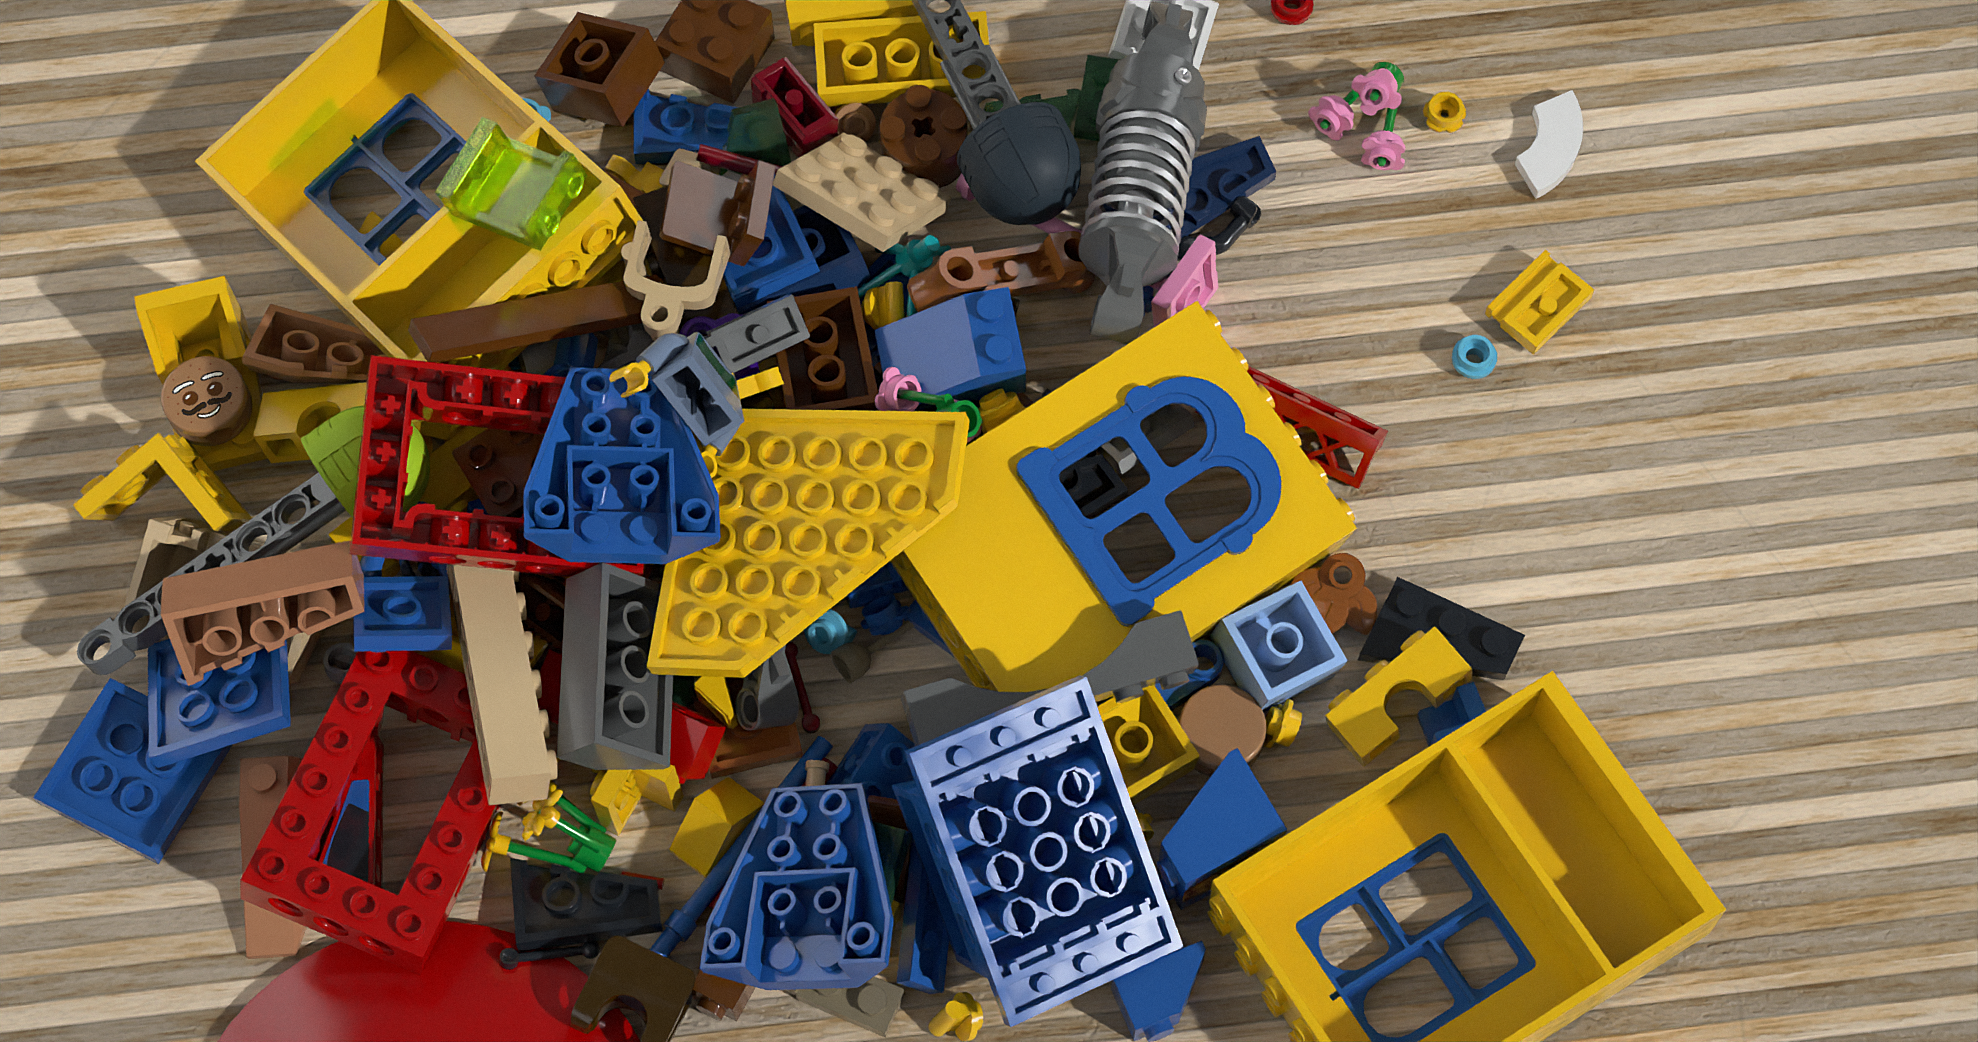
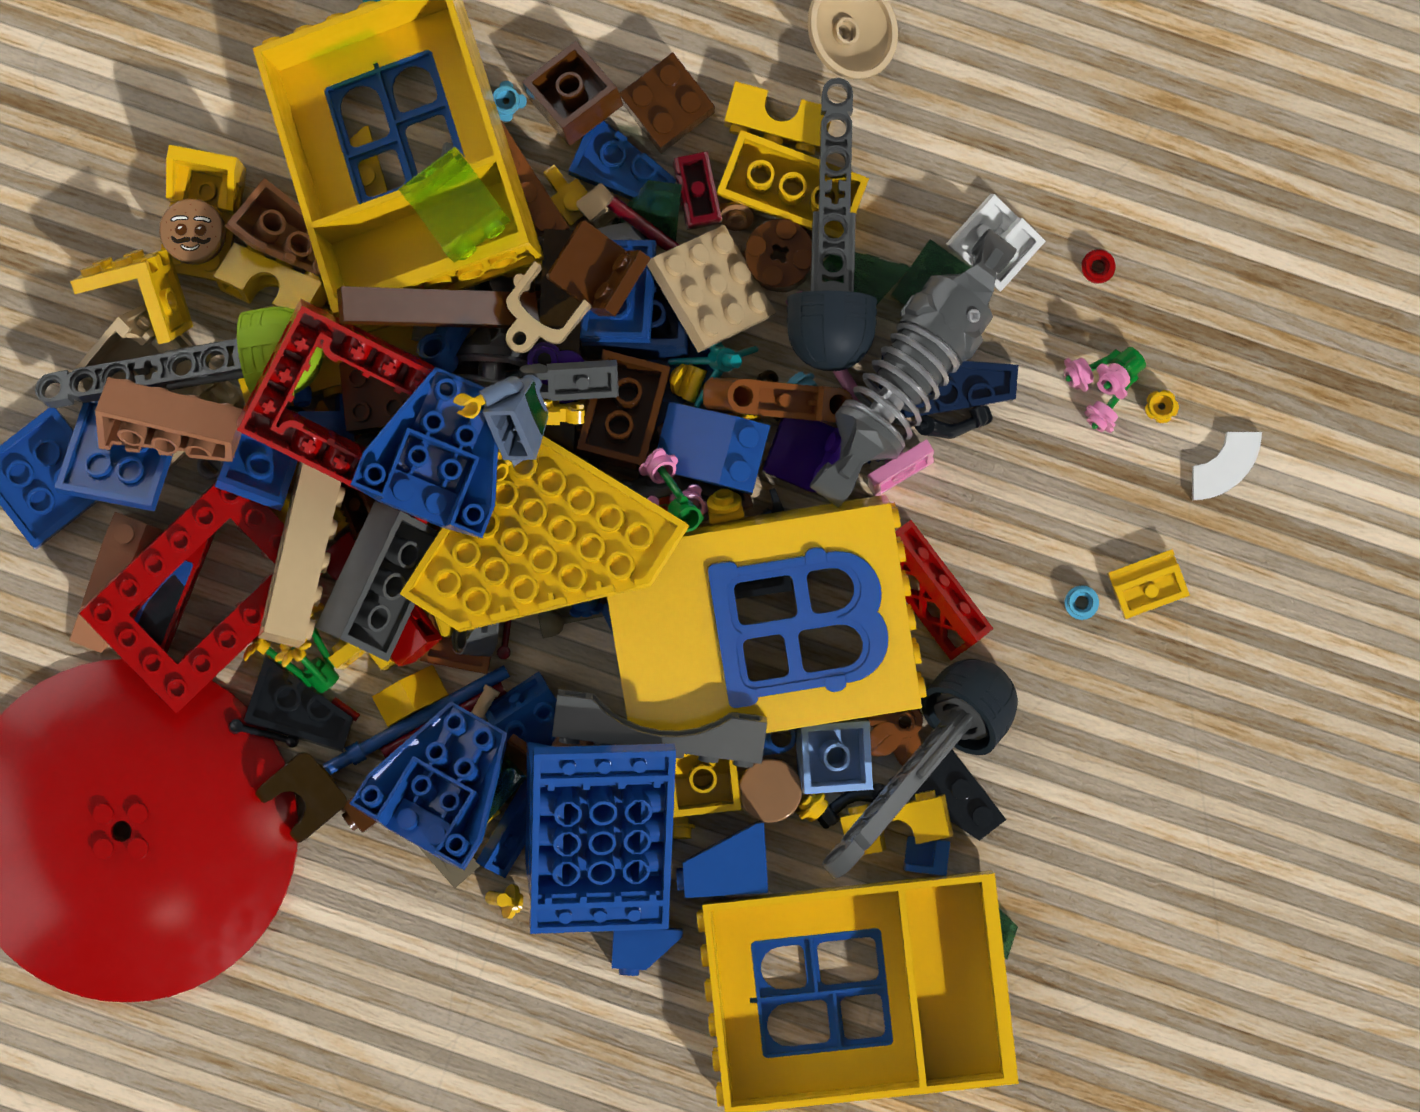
camera: 25 degrees right, 20 degrees up
(1057, 331) = (801, 451): none -> dark purple bracket
(1350, 678) = (830, 815): none -> black piece
(1408, 531) = (968, 710): none -> piece

